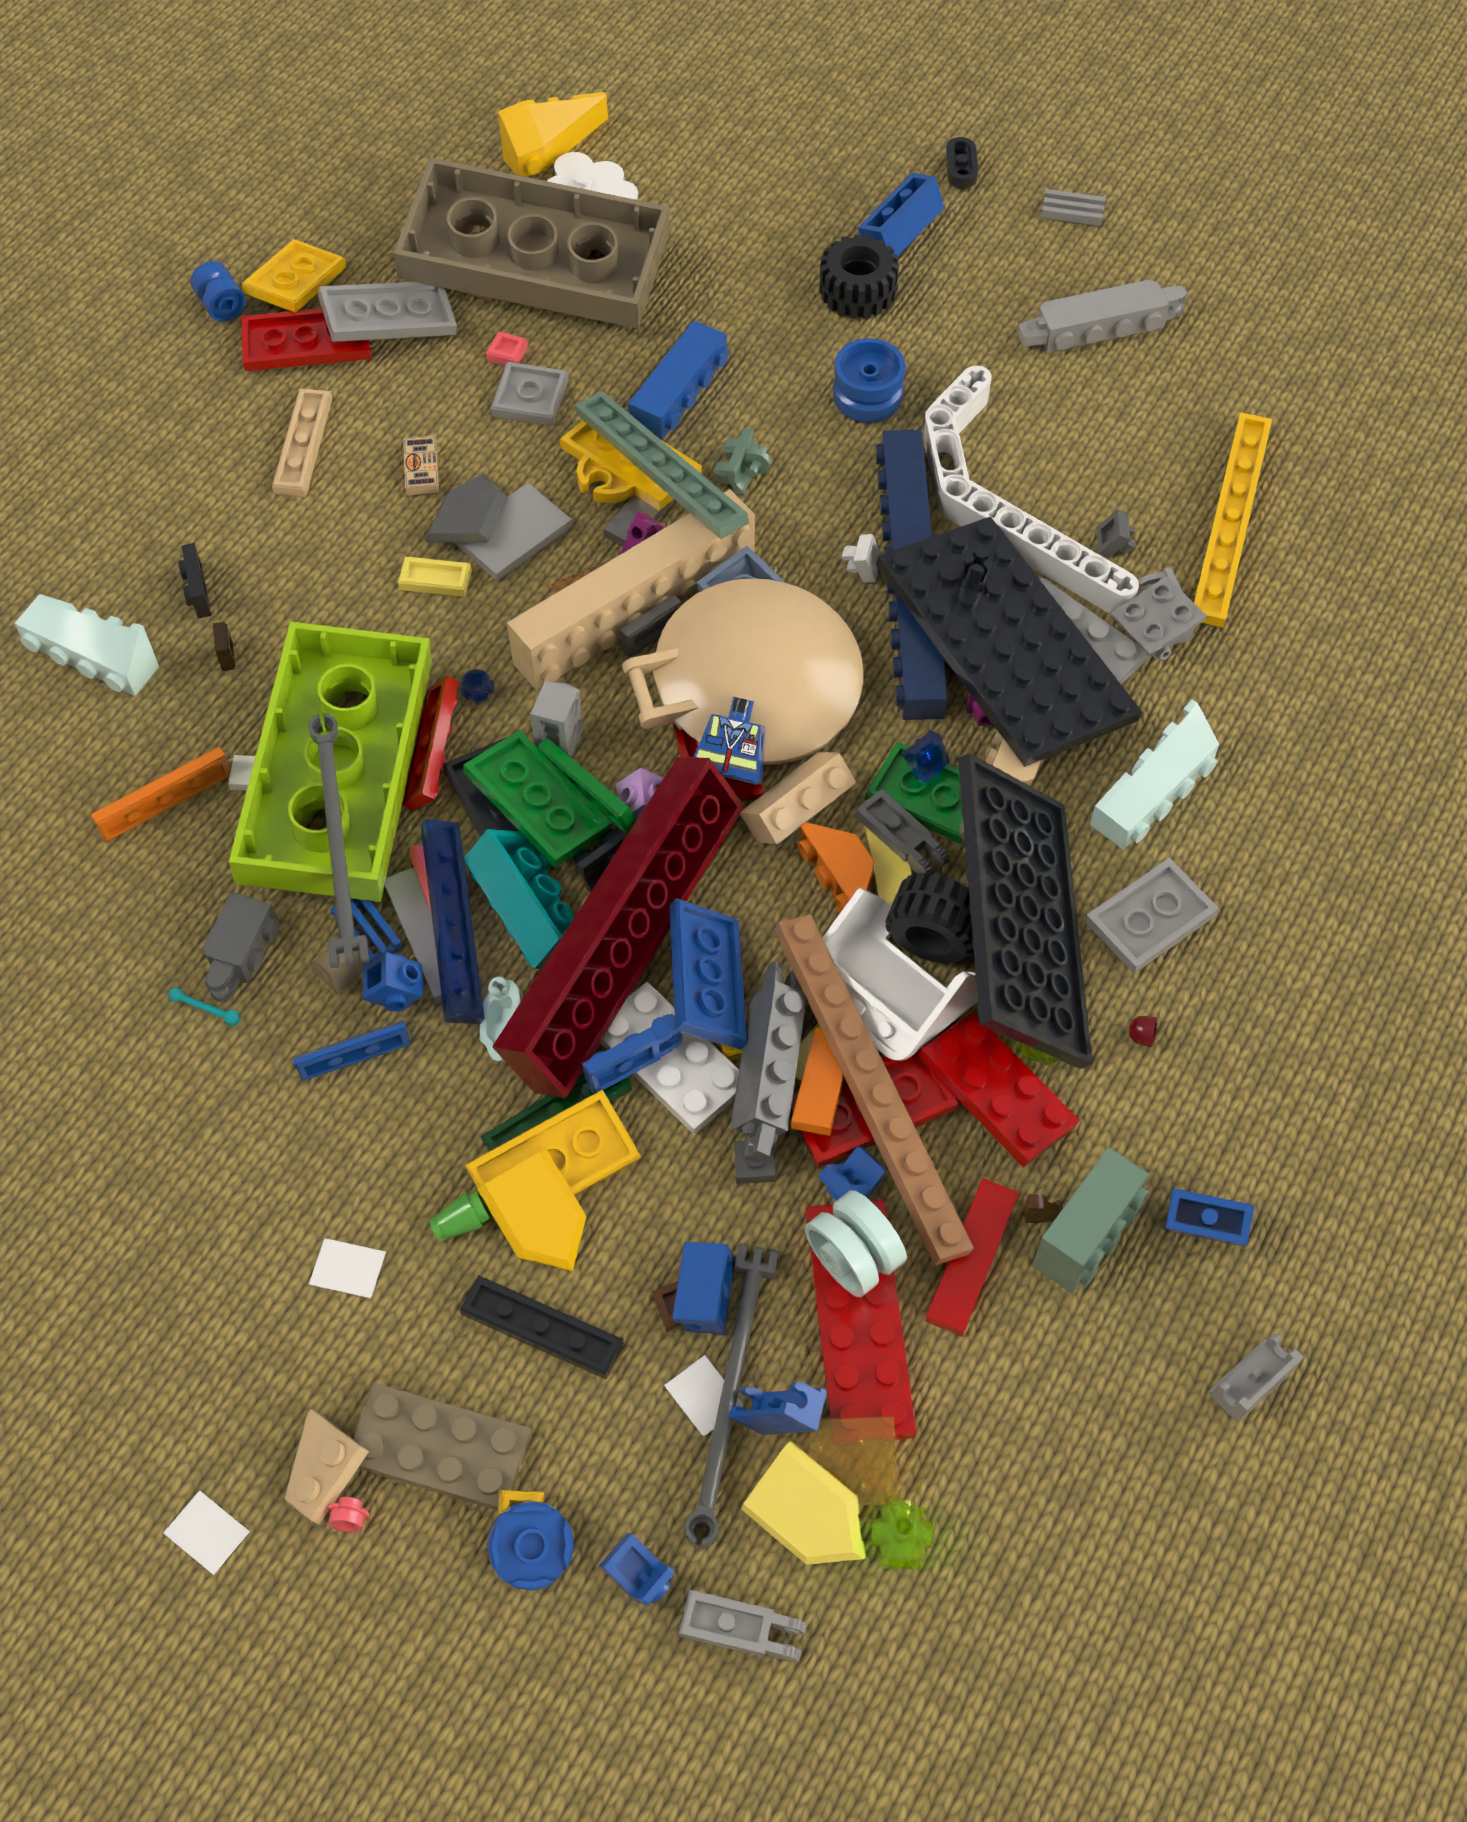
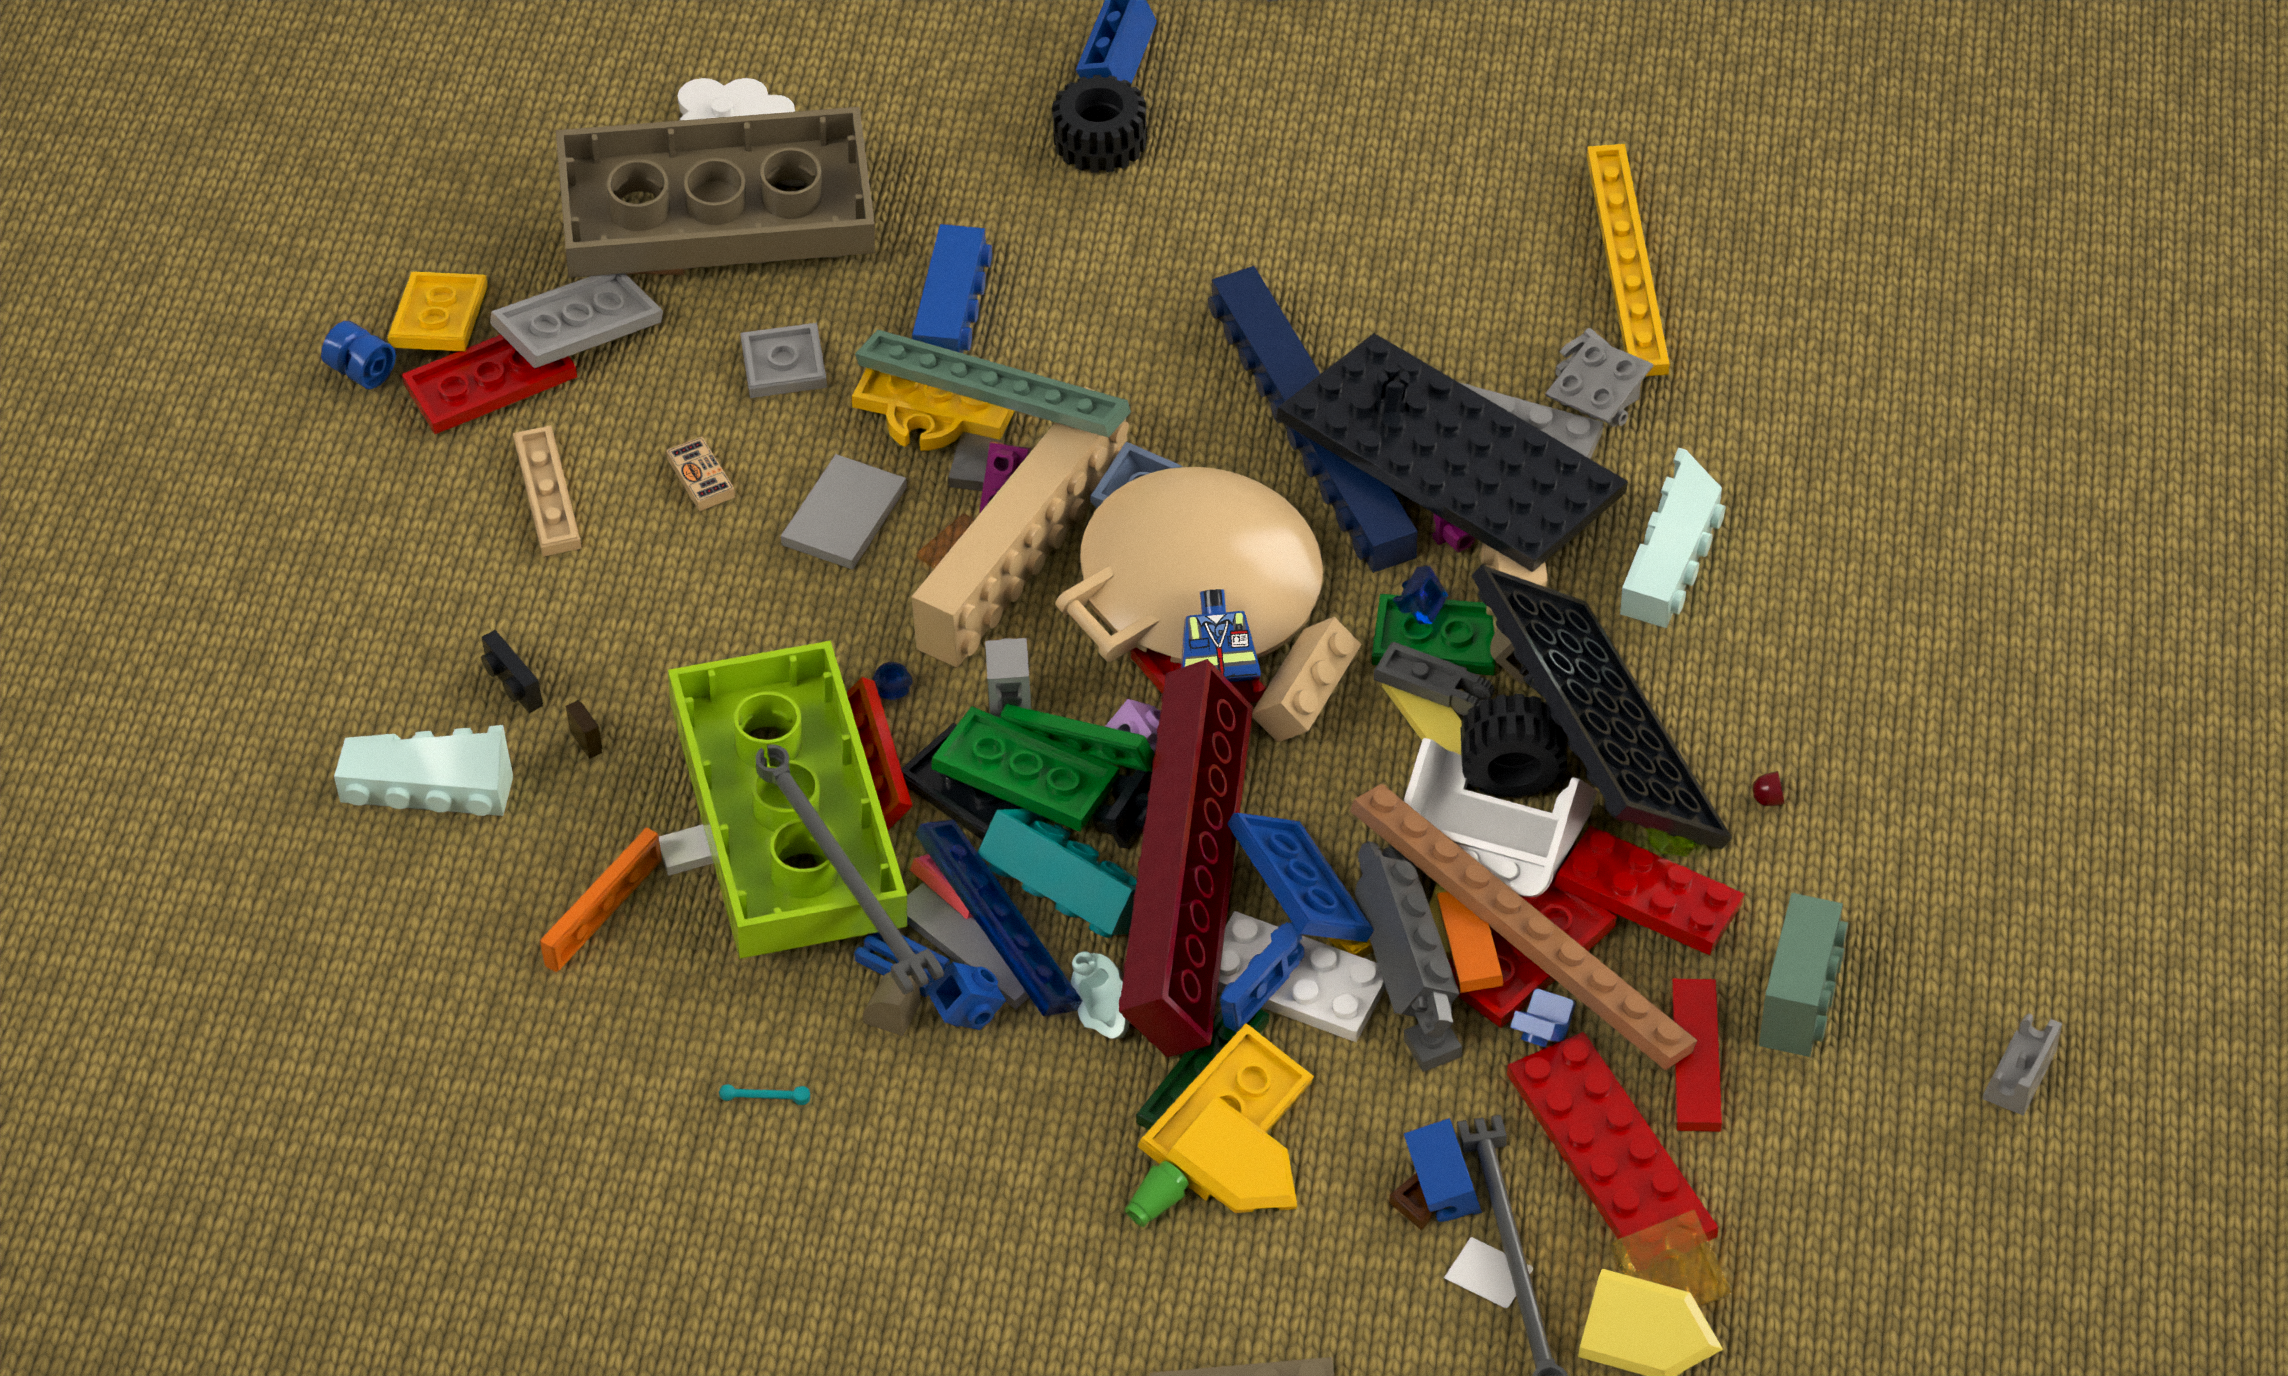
camera: 20 degrees left, 10 degrees down
(238, 943) = (772, 1017): dark grey hinge -> none
(347, 1268) = (1059, 1286): white sticker -> none
(351, 1050) = (953, 1080): blue slope -> none
(434, 576) = (780, 585): light yellow tile -> none
(468, 512) = (786, 506): dark grey tile -> none
(506, 349) = (730, 320): coral tile -> none
(541, 132) = (648, 68): yellow wedge -> none
(542, 1327) = (1292, 1267): black tile -> none
(647, 626) = (1055, 560): dark grey tile -> none
(745, 461) = (1070, 354): sand green hips -> none
(782, 1410) = (1580, 1247): blue hinge -> none
(838, 861) = (1377, 729): orange slope -> none
(855, 1243) = (1583, 1065): light aqua wheel -> none
(863, 558) = (1252, 420): white tile -> none
(868, 380) = (1168, 231): blue wheel -> none
(897, 1549) = (1750, 1316): clear neon green brick -> none
(967, 502) = (1339, 328): white beam -> none
(1039, 1210) = (1744, 987): reddish brown tile -> none
(1102, 315) = (1390, 87): light grey hinge -> none
(1115, 534) = (1512, 313): dark grey tile -> none
(1151, 915) = (1726, 678): light grey plate -> none
(1209, 1217) = (1914, 934): blue brick -> none

